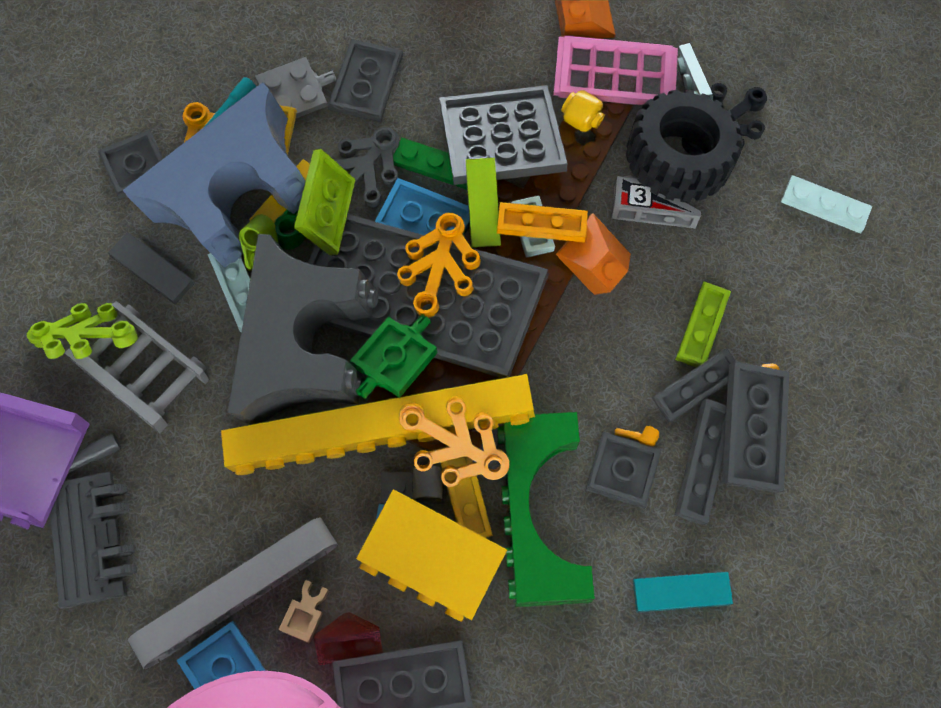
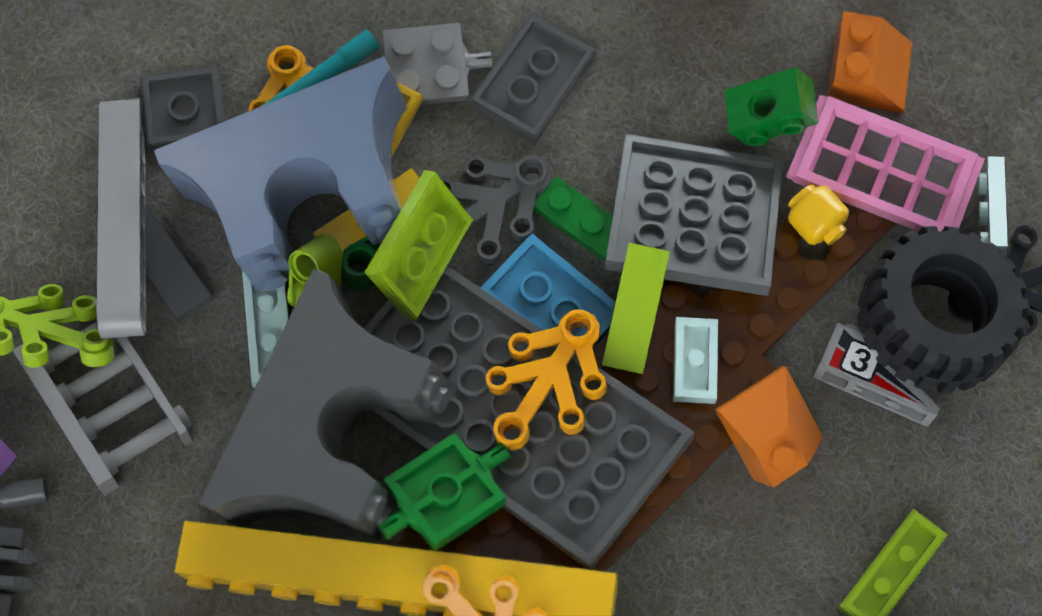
camera: 15 degrees right, 0 degrees up
(114, 245) = (121, 220): none -> light grey beam
(515, 54) = (751, 102): none -> green brick
(542, 222) = (708, 361): light orange plate -> none

